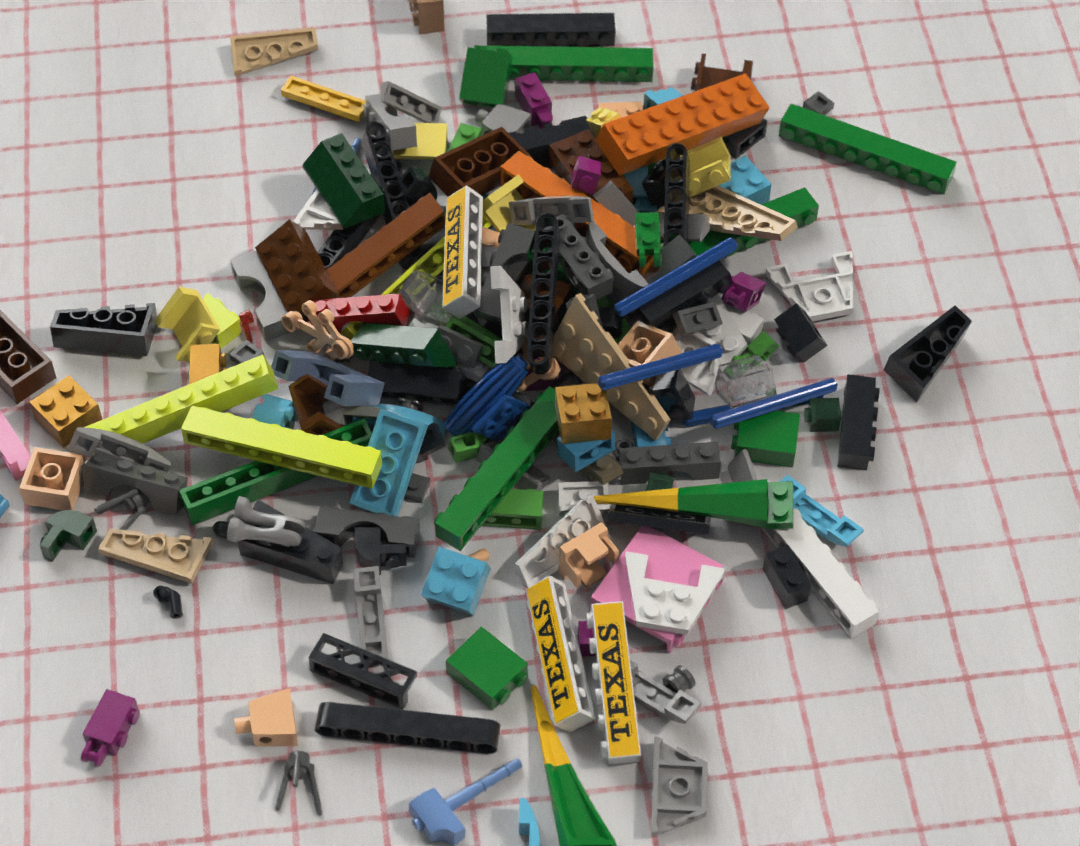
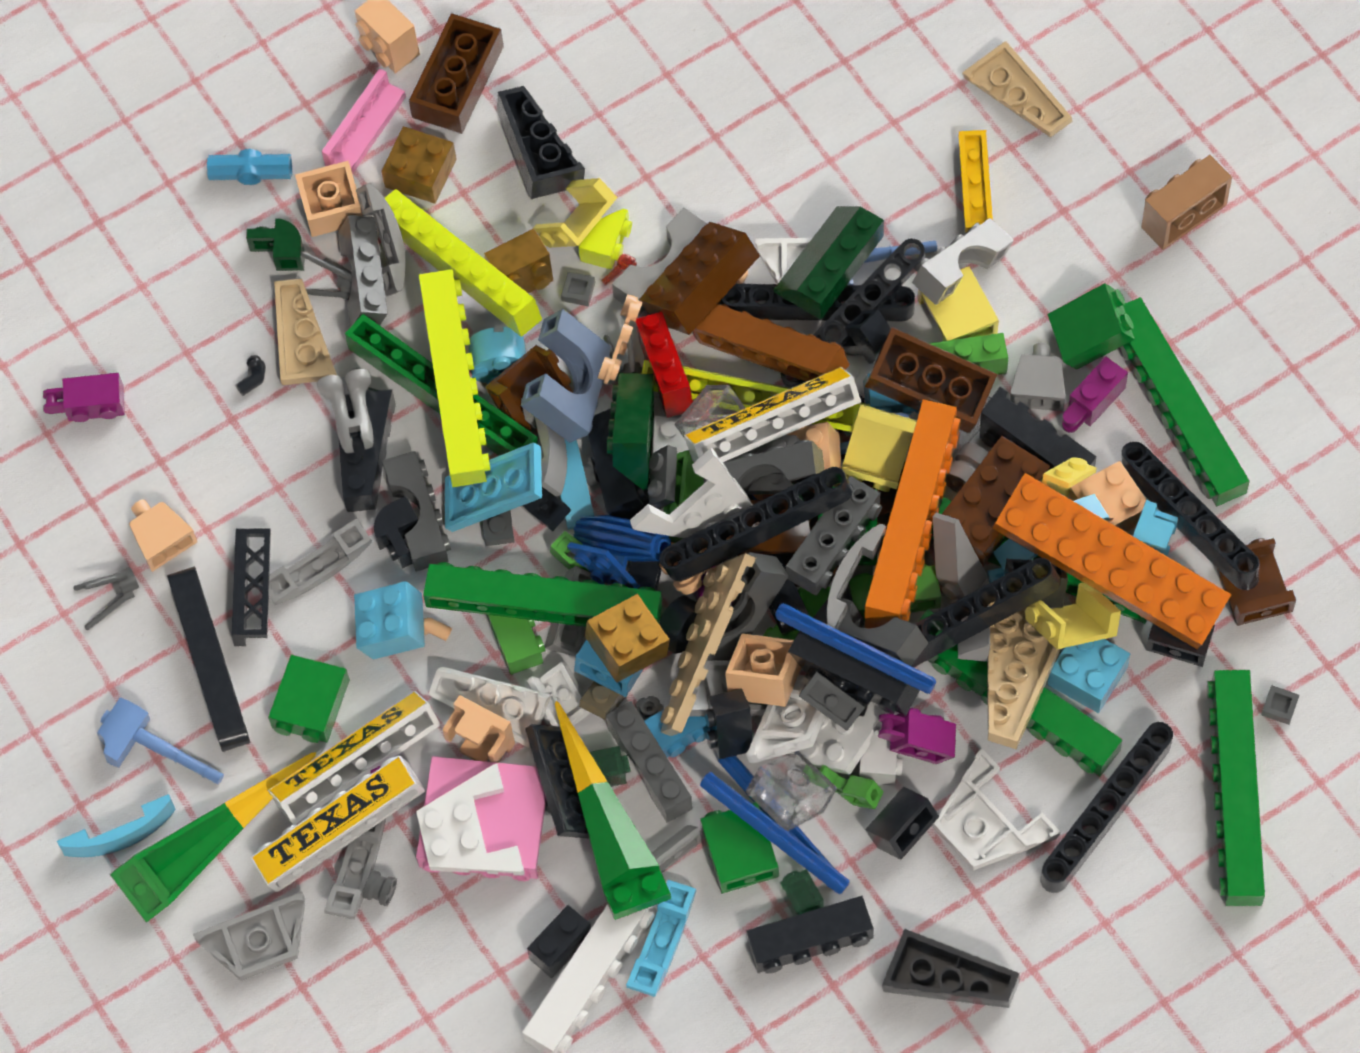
camera: 70 degrees right, 10 degrees up
(409, 103) = (1003, 268): light grey slope -> none
(551, 29) = (1222, 360): black brick -> none
(575, 208) = (884, 462): light grey slope -> none
(585, 175) = (954, 491): magenta brick -> none
(648, 237) = (895, 595): green hinge -> none
(660, 366) = (727, 688): blue axle -> none
(683, 78) = (1193, 516): none -> black beam
(846, 221) = (1102, 819): none -> black beam

